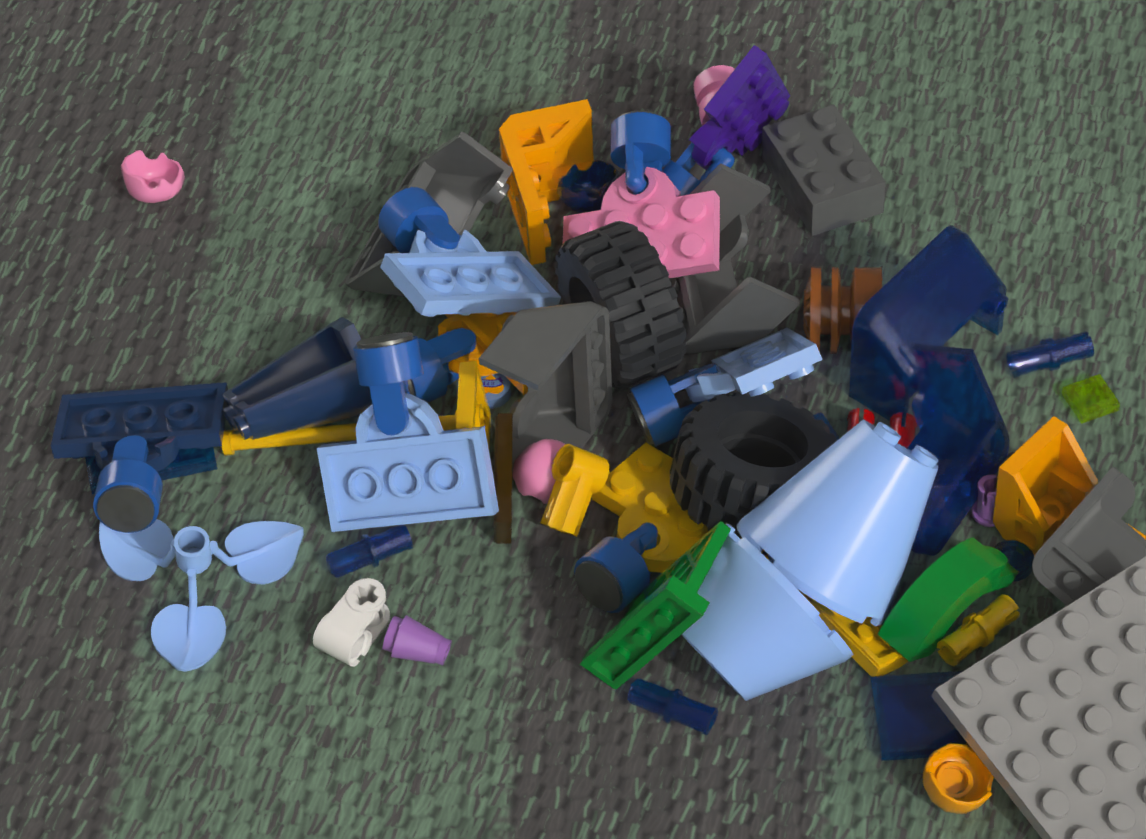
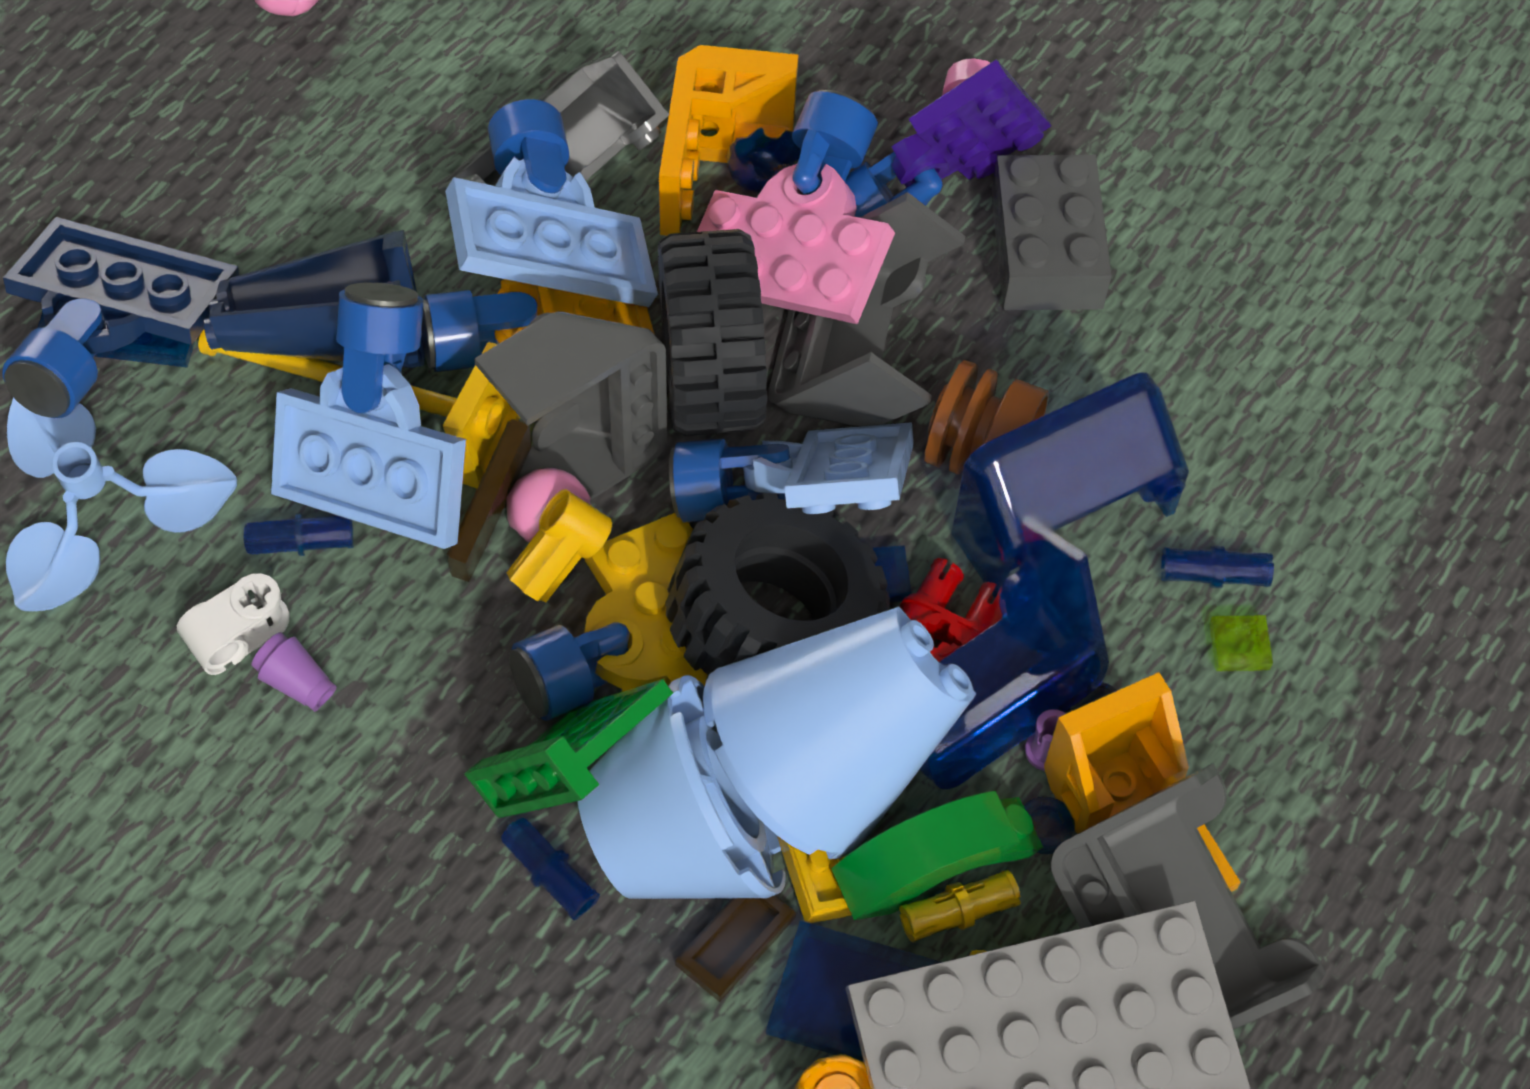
camera: 15 degrees right, 10 degrees up
(829, 707) = (734, 942): none -> dark brown tile

